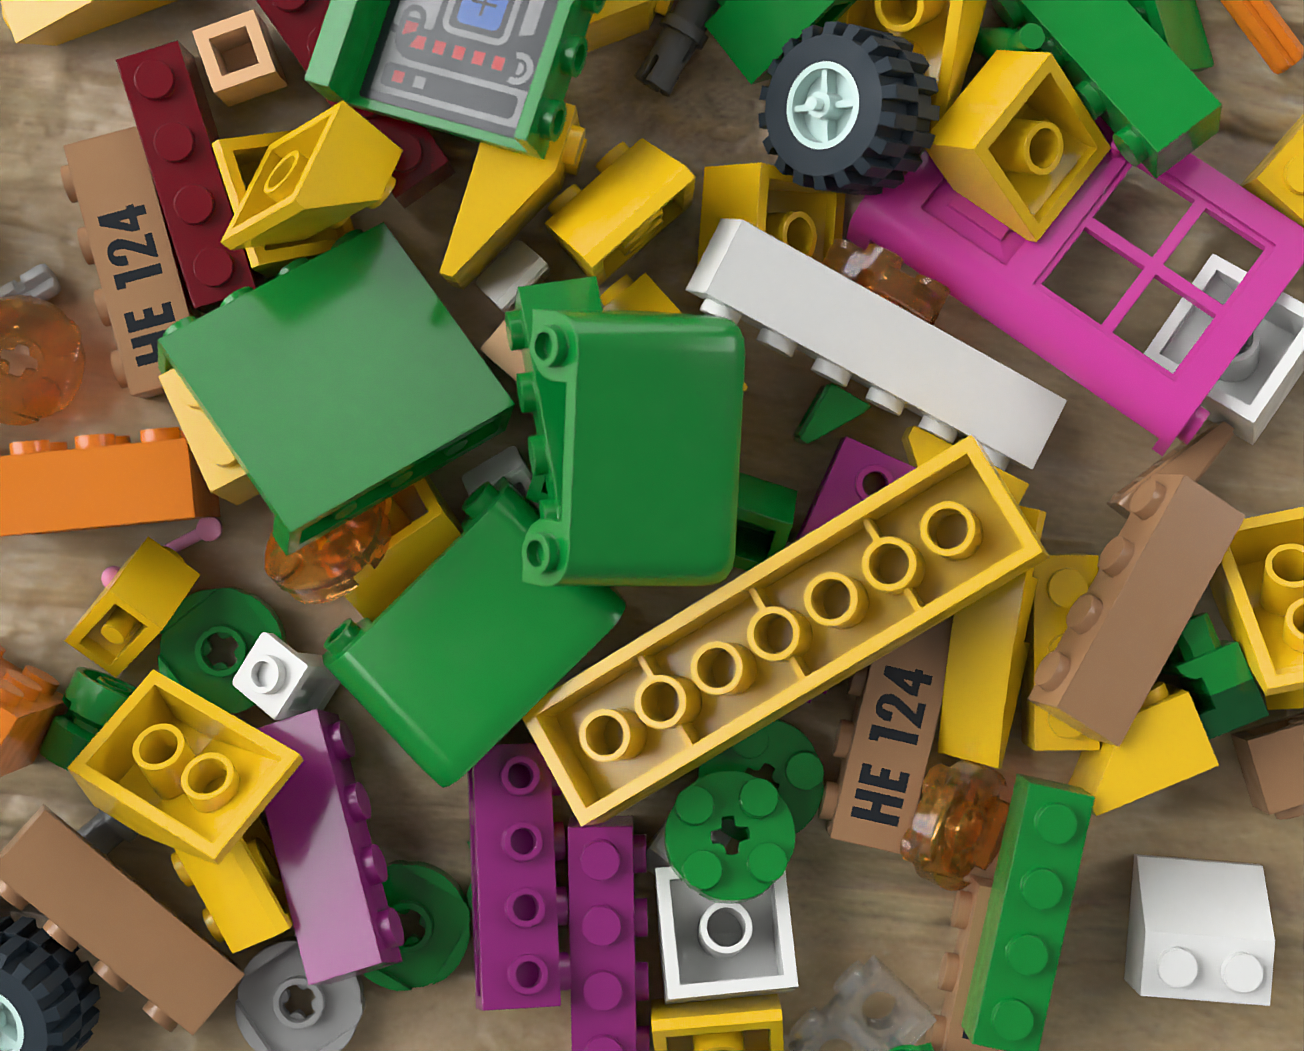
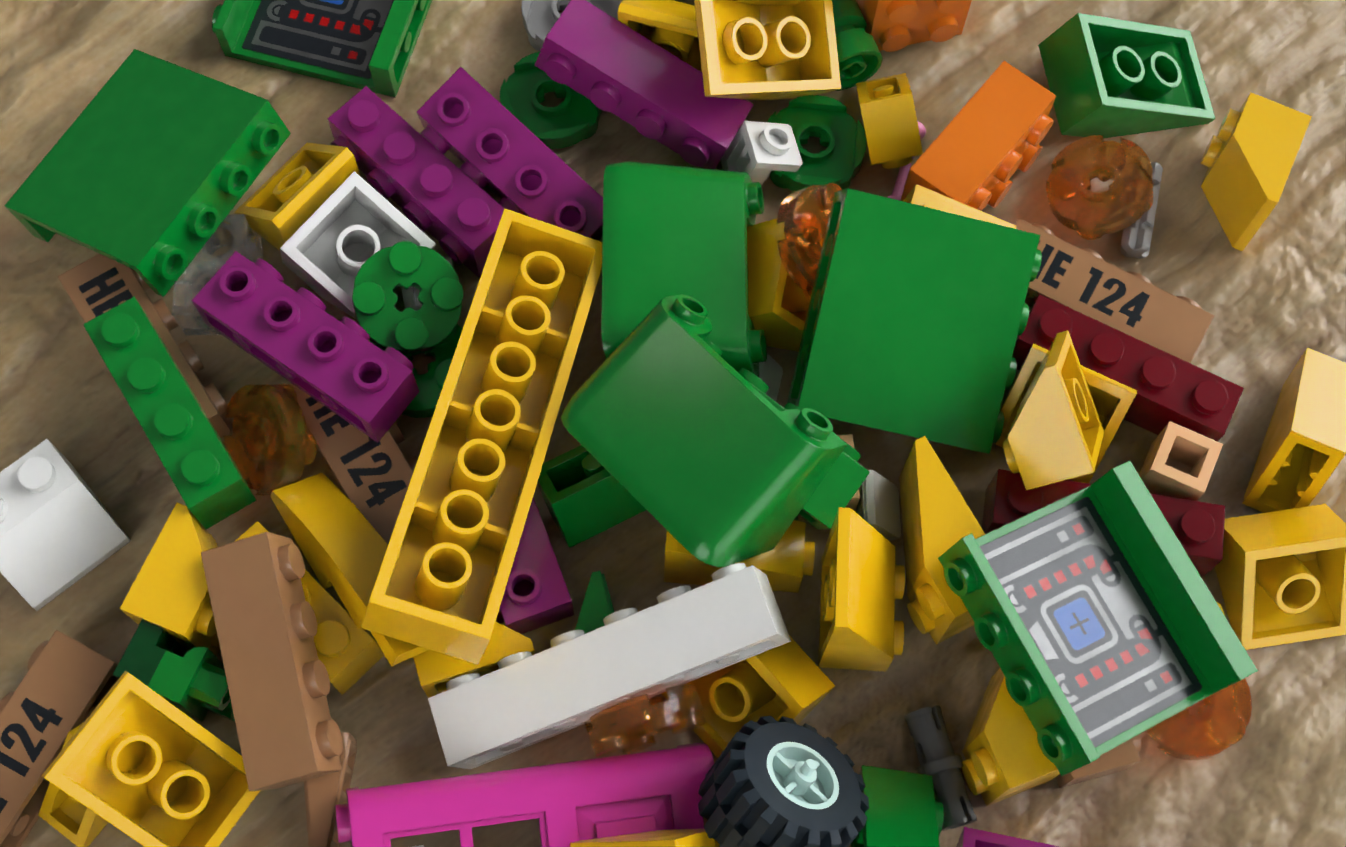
camera: 135 degrees right, 20 degrees down
(859, 869) = (308, 345): none -> magenta brick

